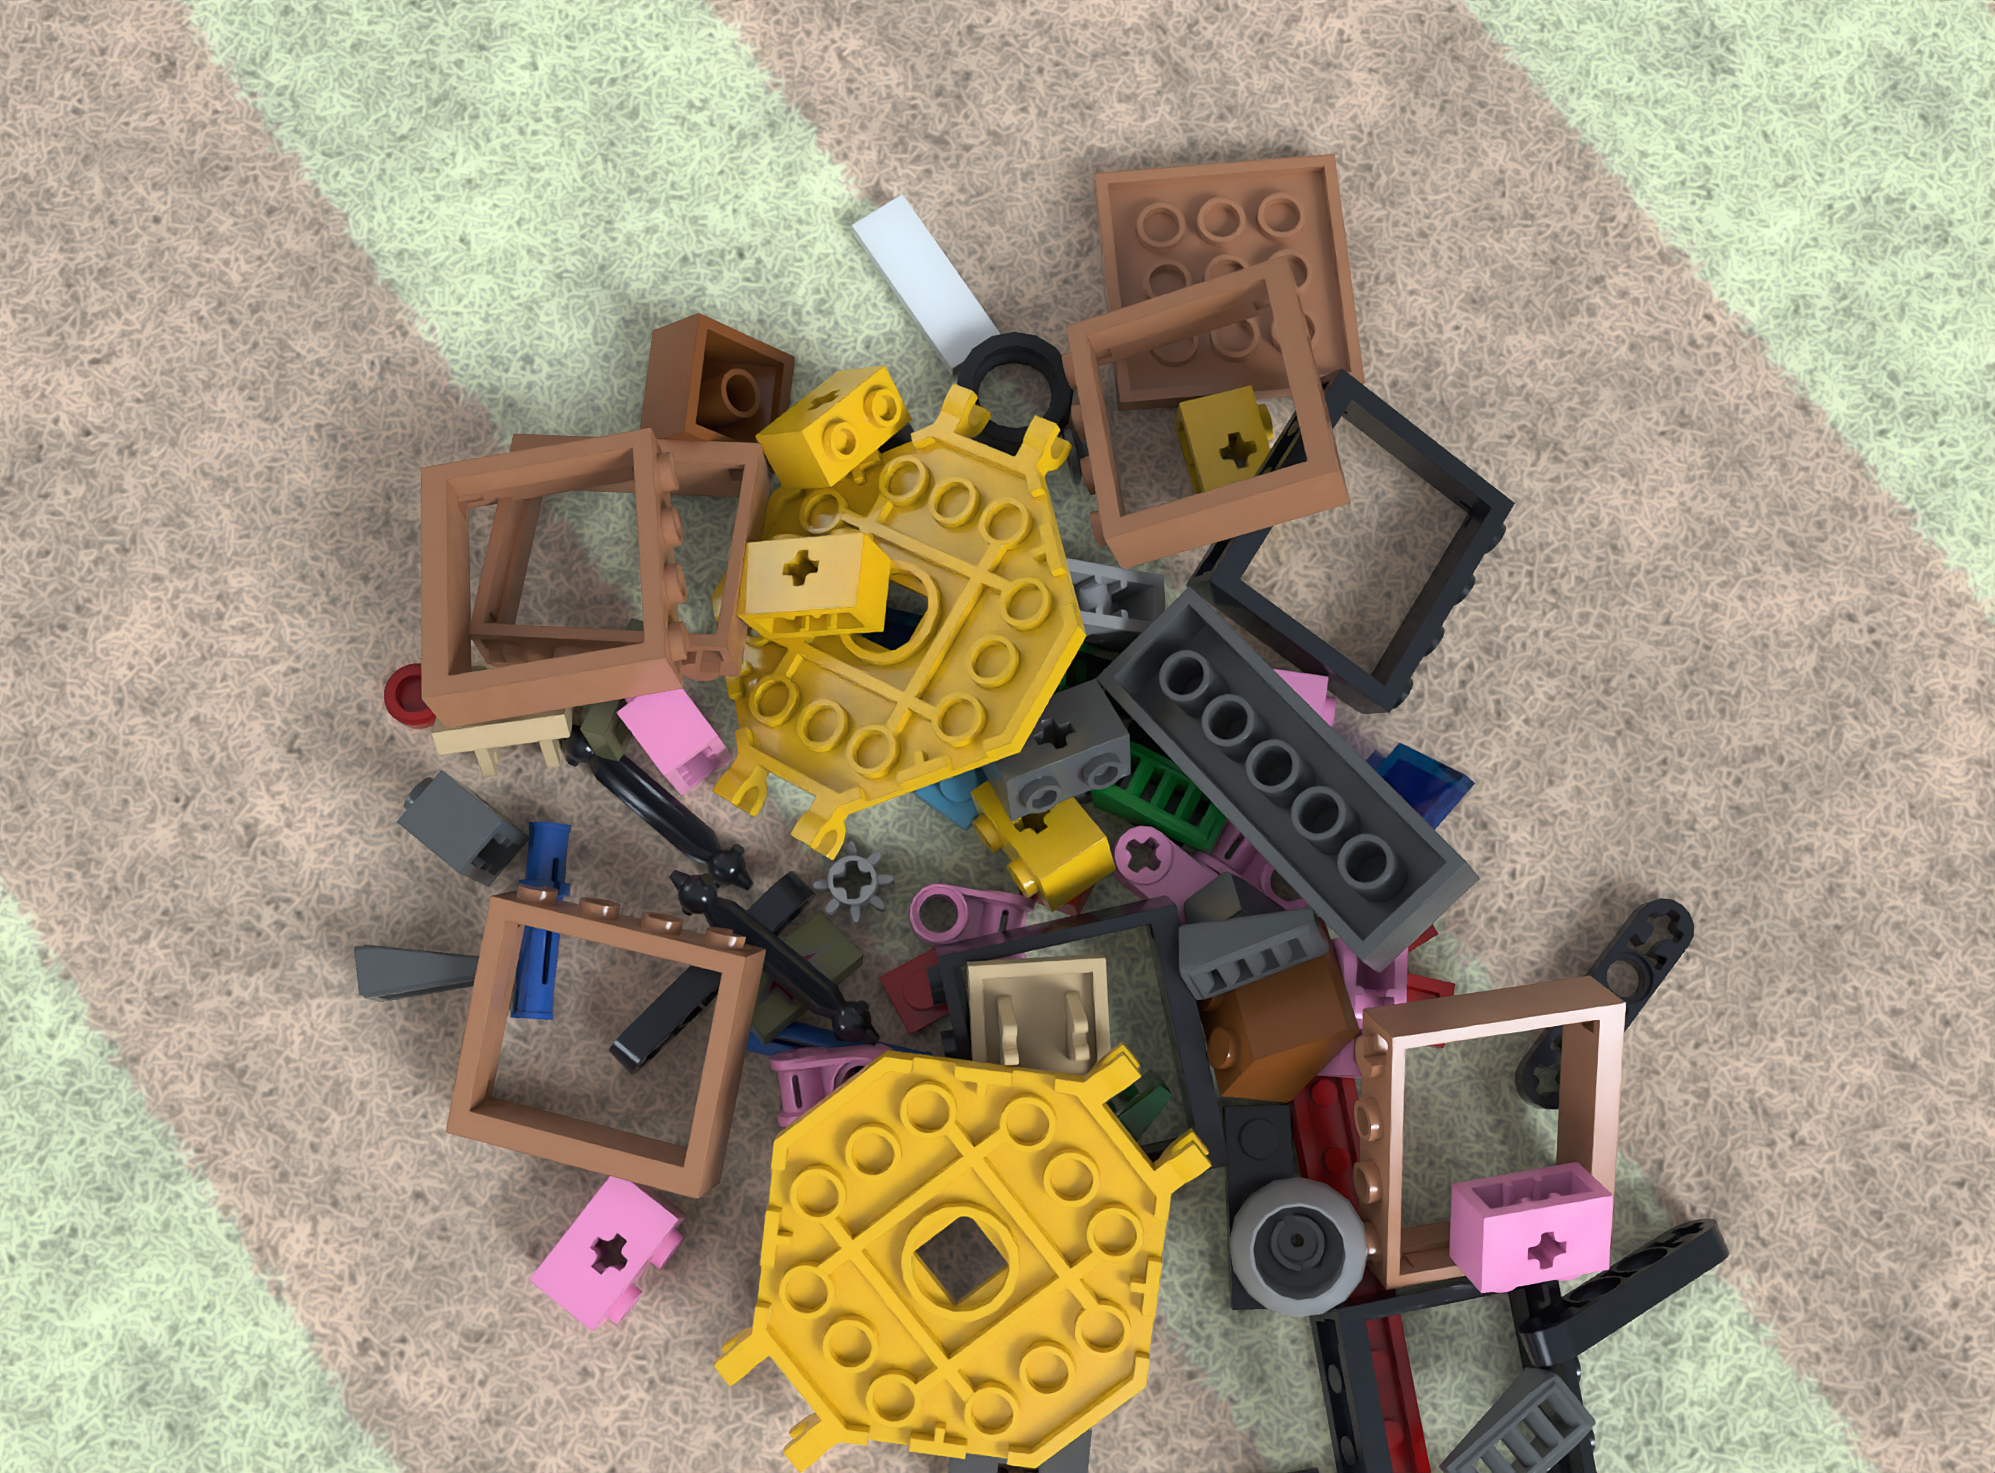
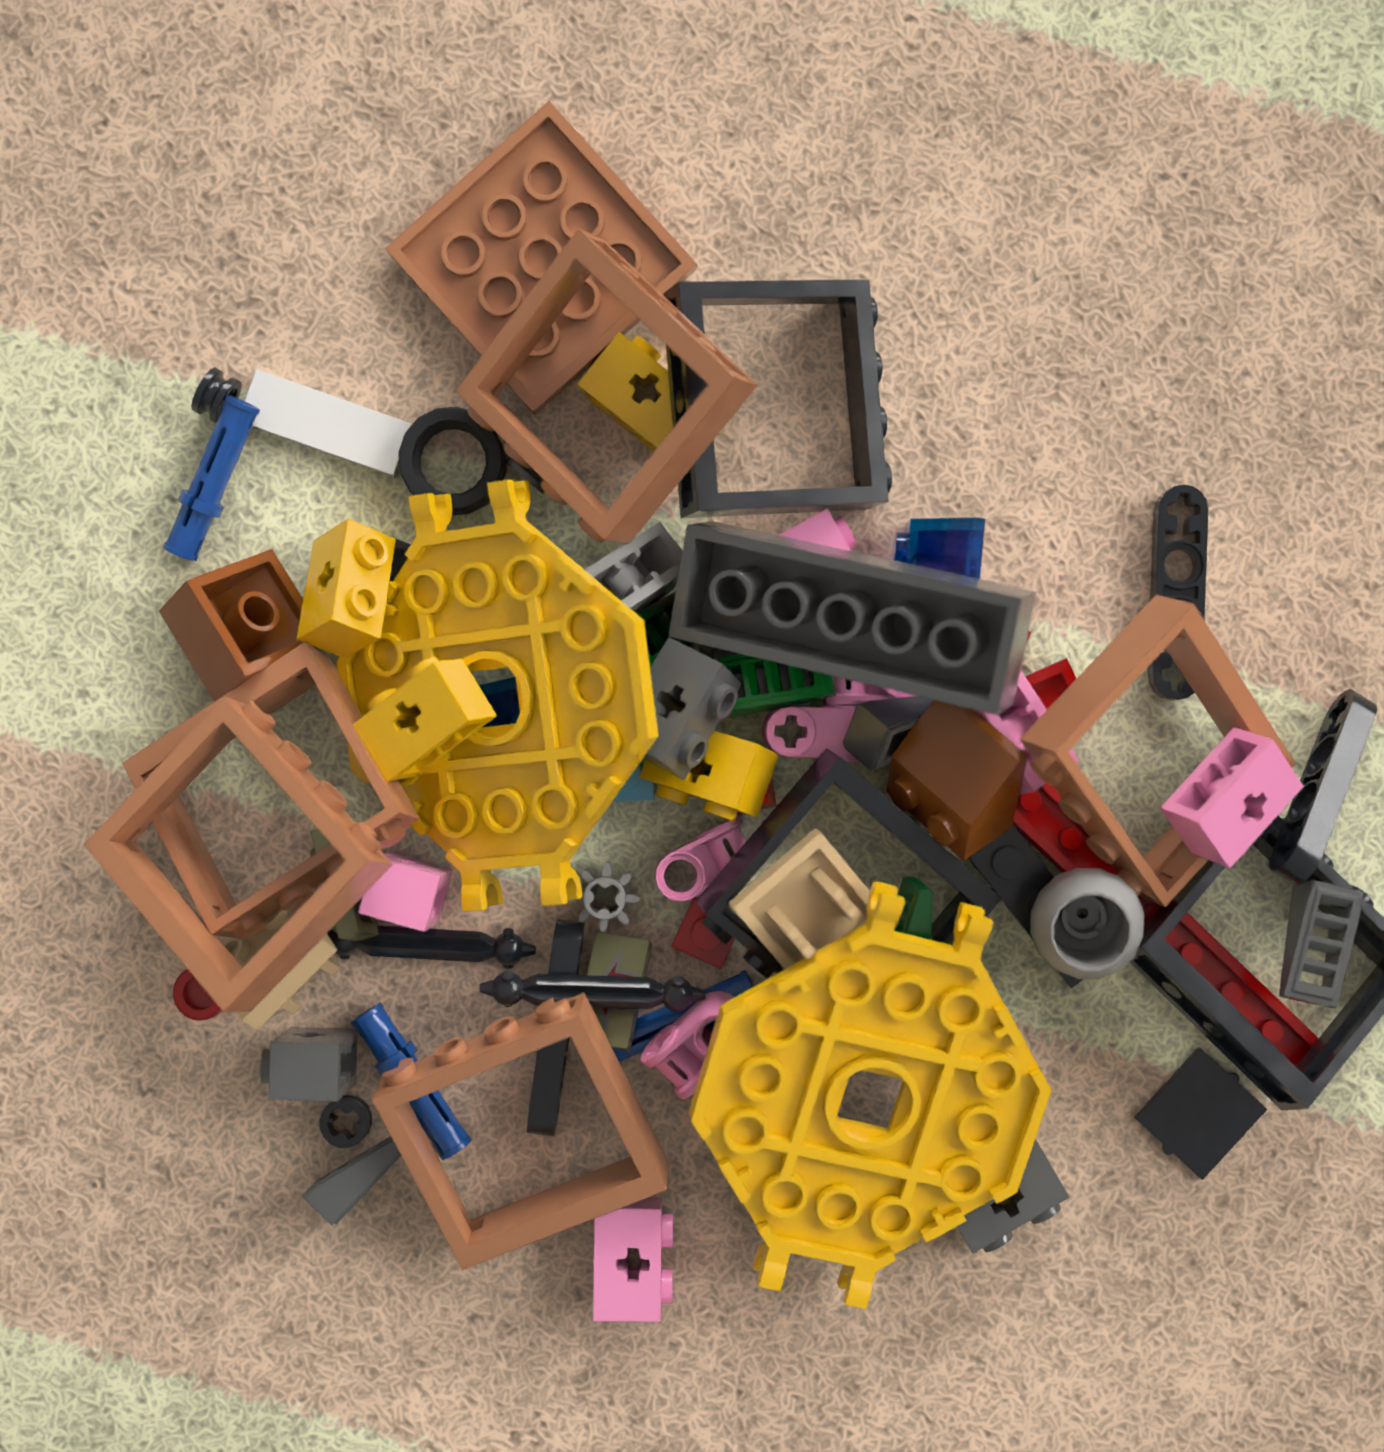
camera: 30 degrees left, 10 degrees up
(438, 928) = (344, 1138): none -> black bush
(789, 255) = (211, 478): none -> blue pin
(849, 190) = (212, 392): none -> black bush
(1246, 949) = (907, 757): dark grey slope -> none

